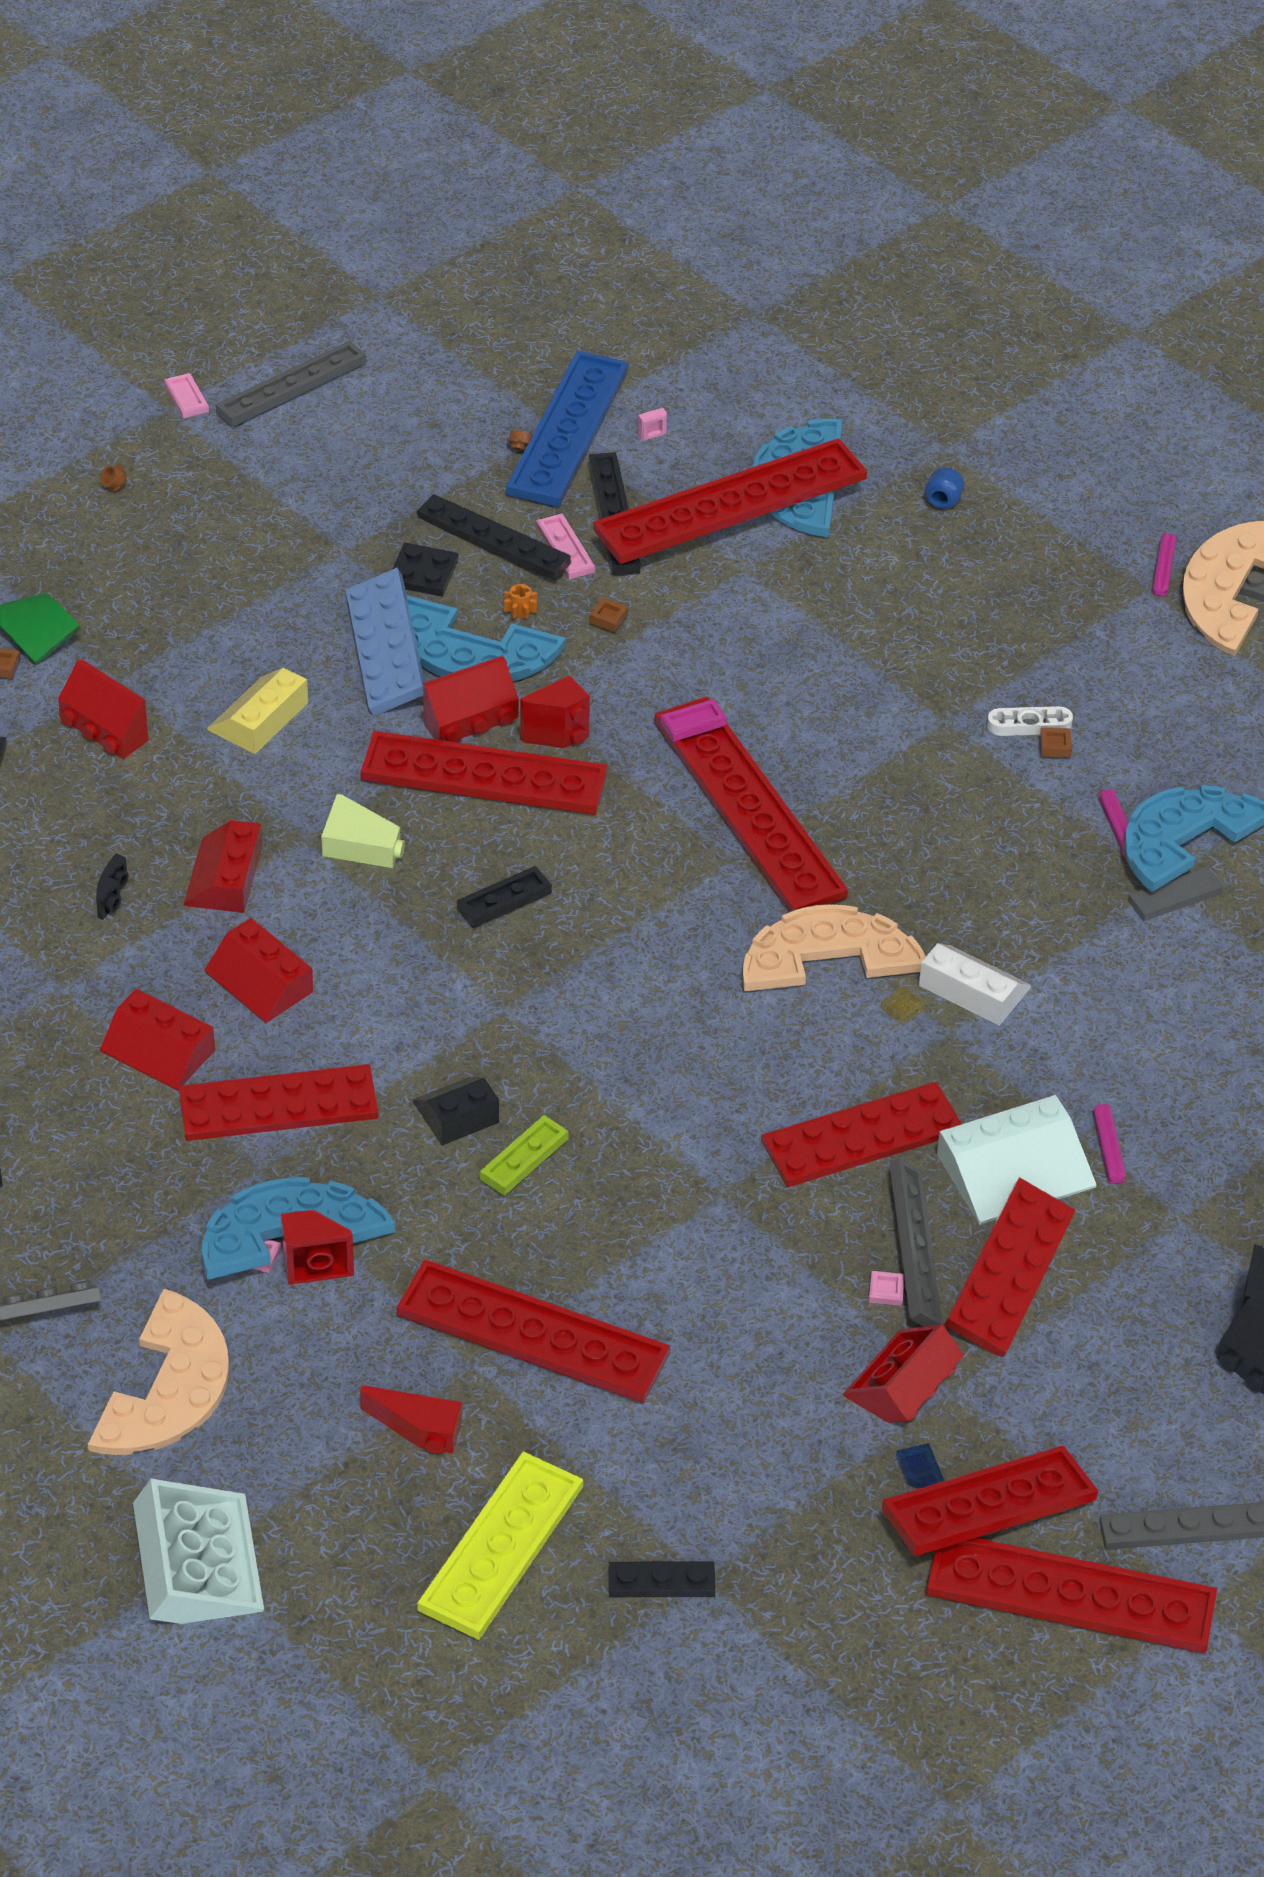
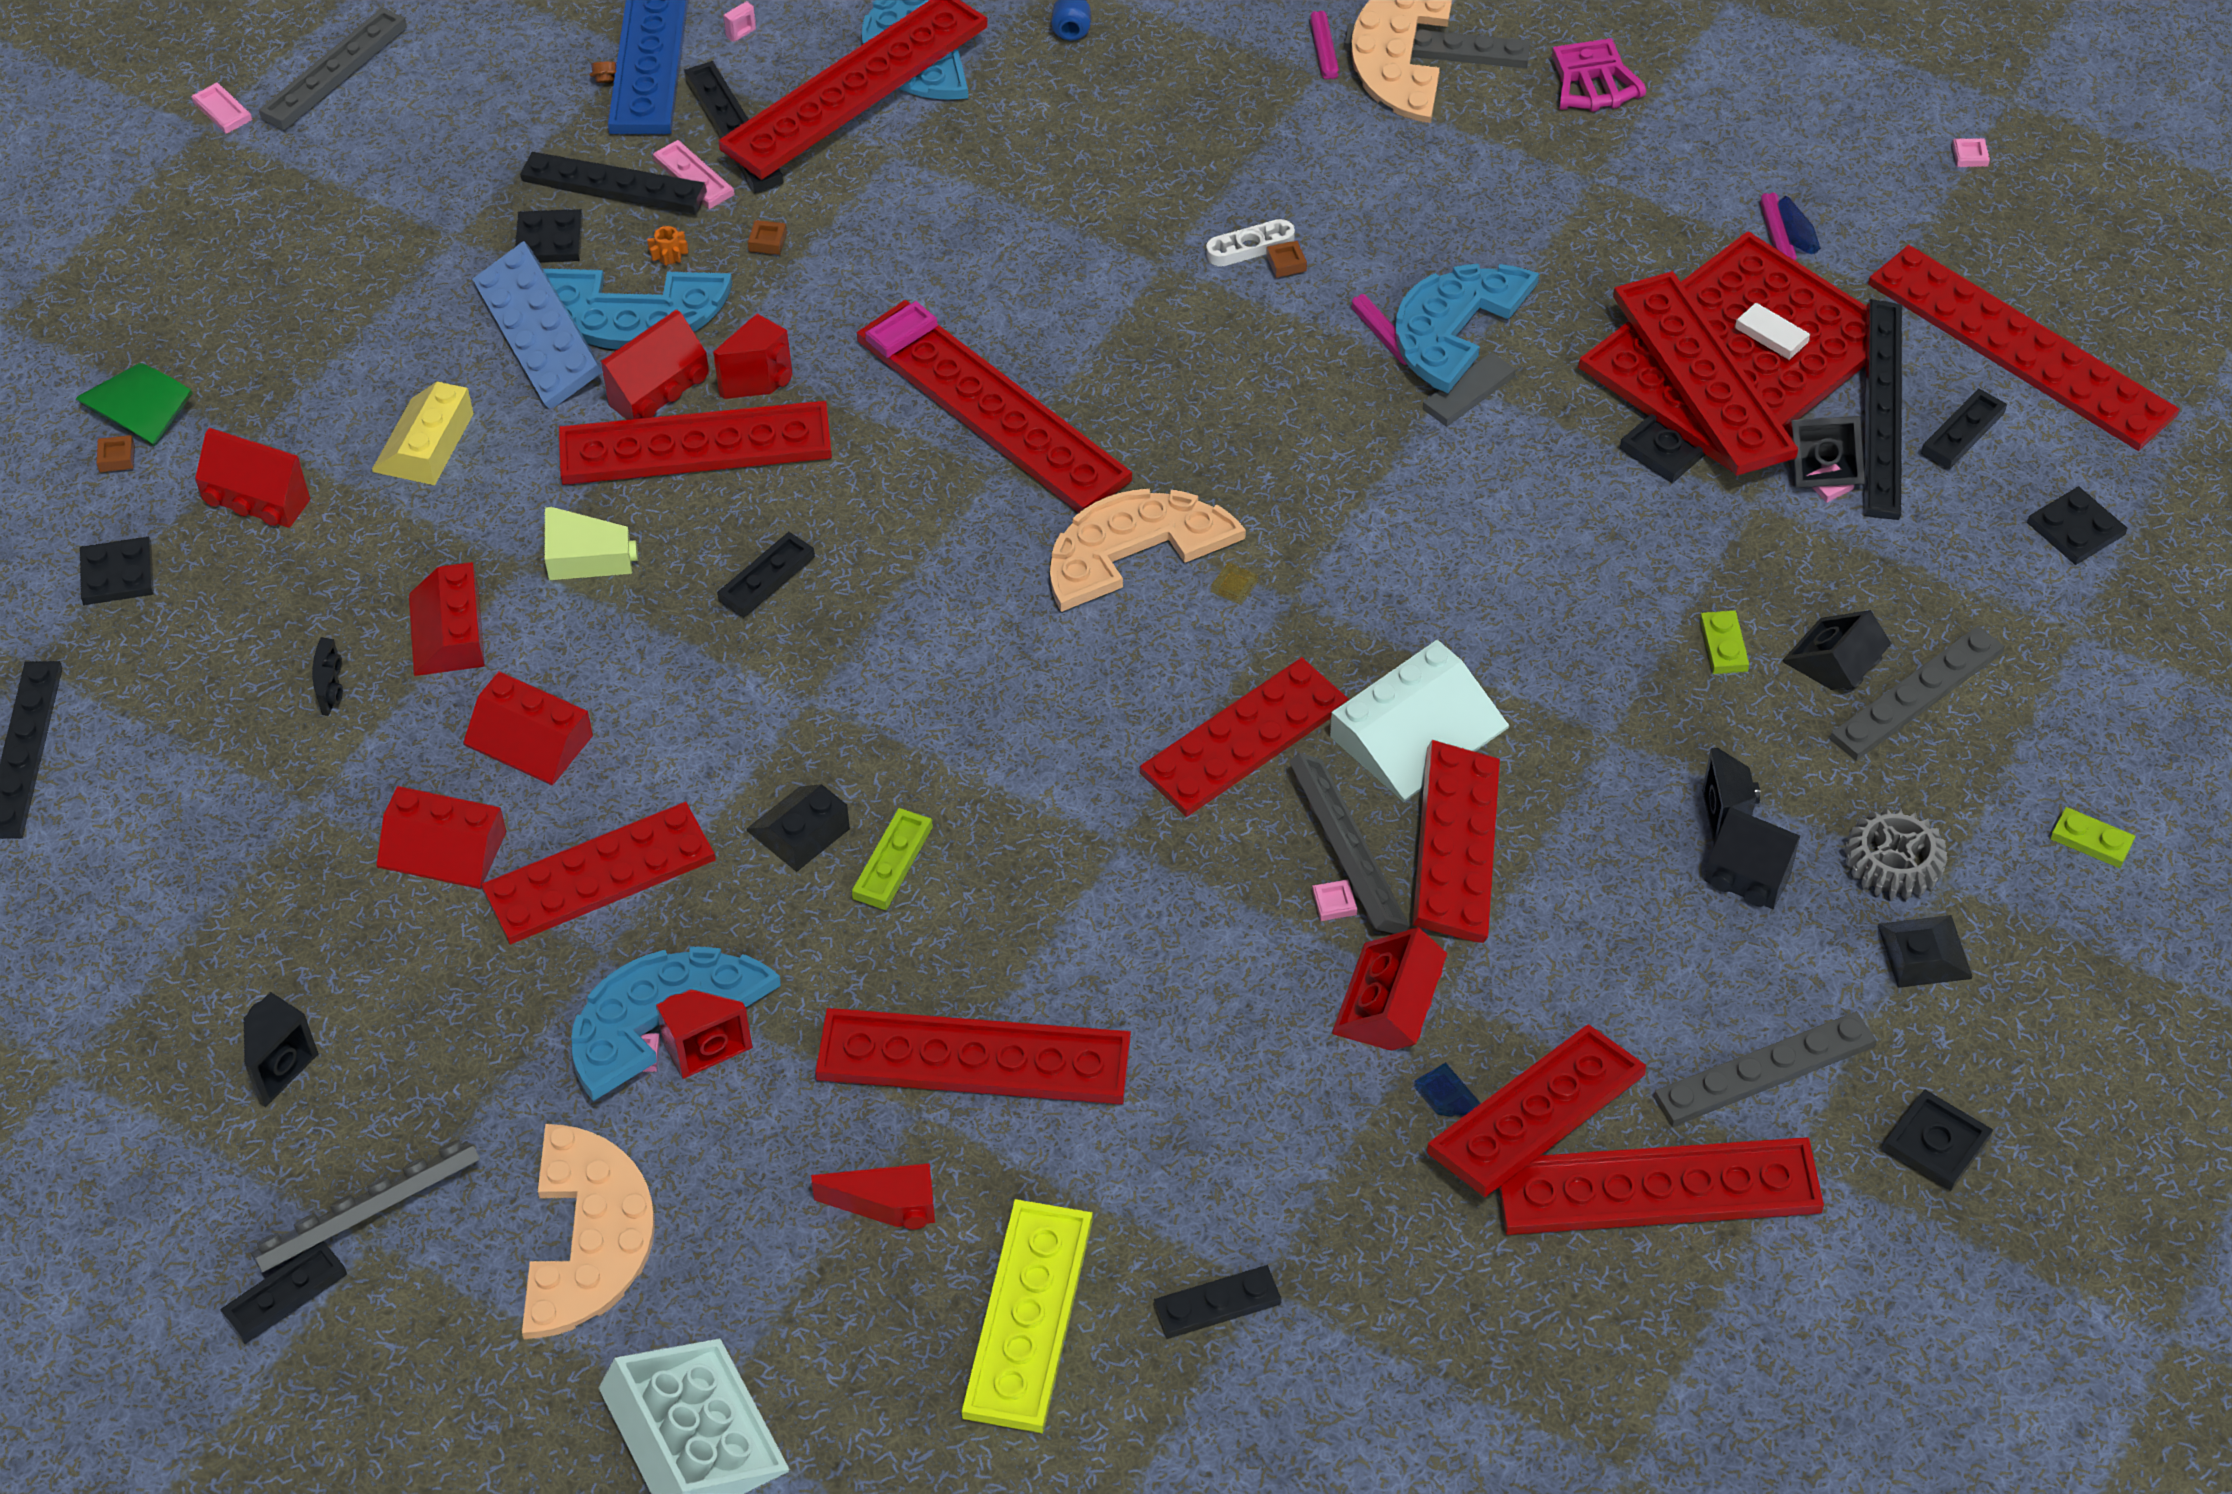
camera: 15 degrees left, 5 degrees up
(113, 477) = (171, 216): dark orange plate -> none
(971, 983) = (1298, 540): white slope -> none
(1109, 1144) = (1505, 677): dark pink axle -> none

